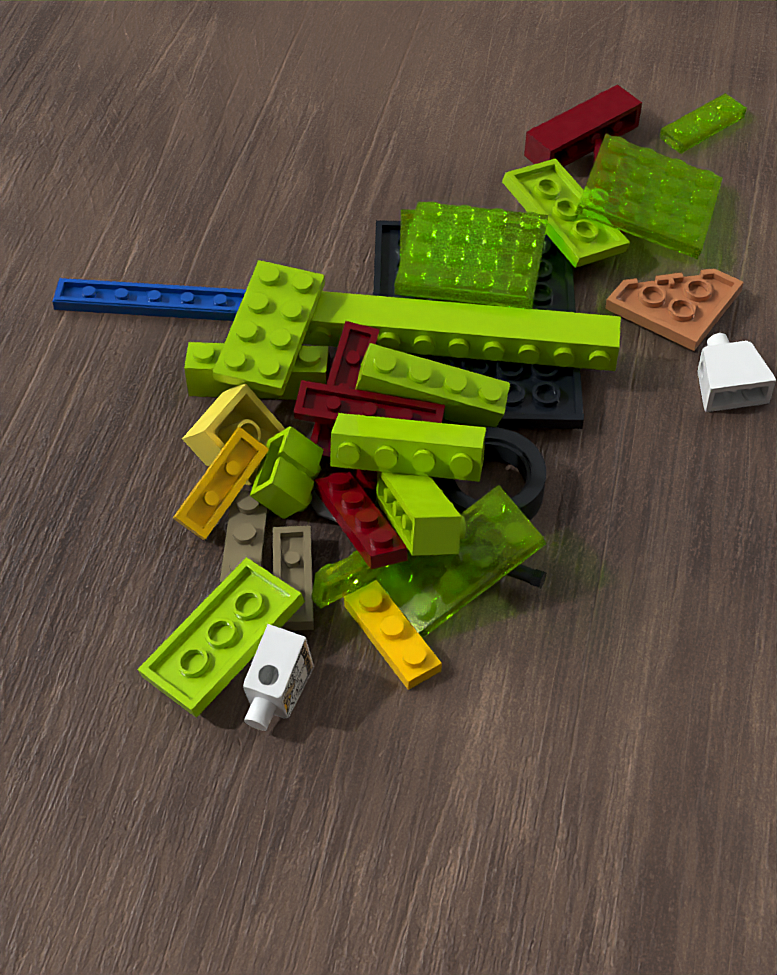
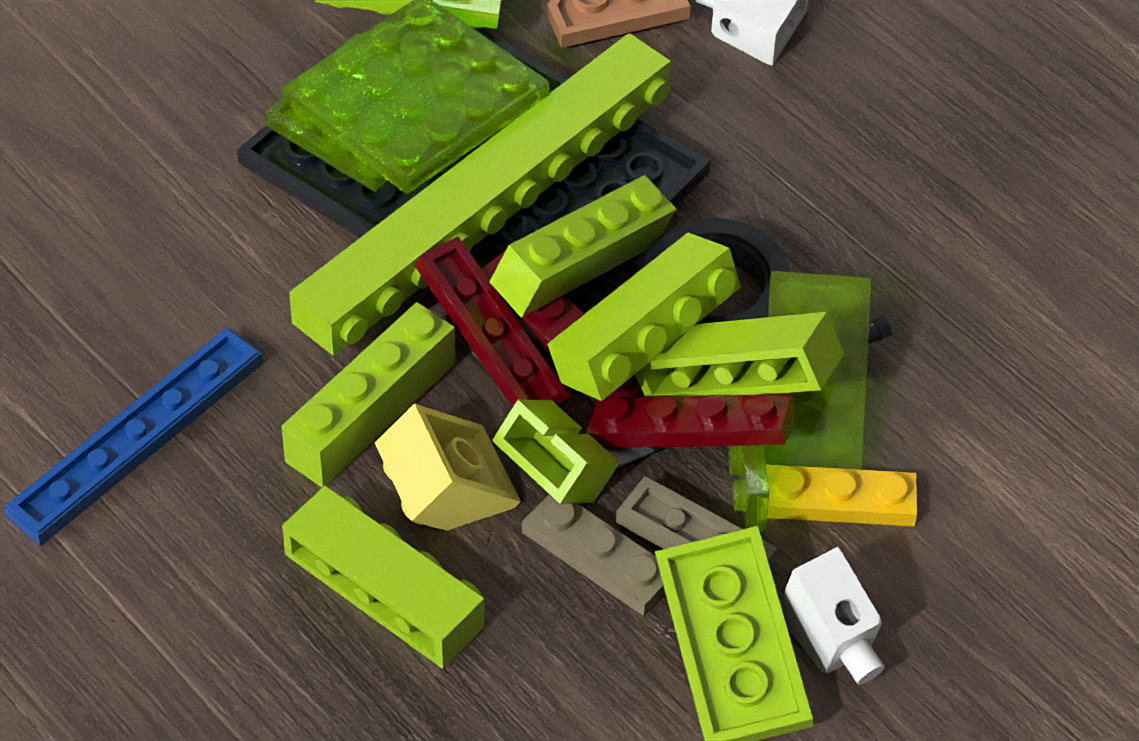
camera: 55 degrees left, 0 degrees up
(138, 453) = (384, 576): none -> lime brick
(221, 483) = (519, 519): yellow plate -> none
(269, 328) = (354, 331): lime plate -> none
(323, 402) = (523, 341): dark red plate -> none

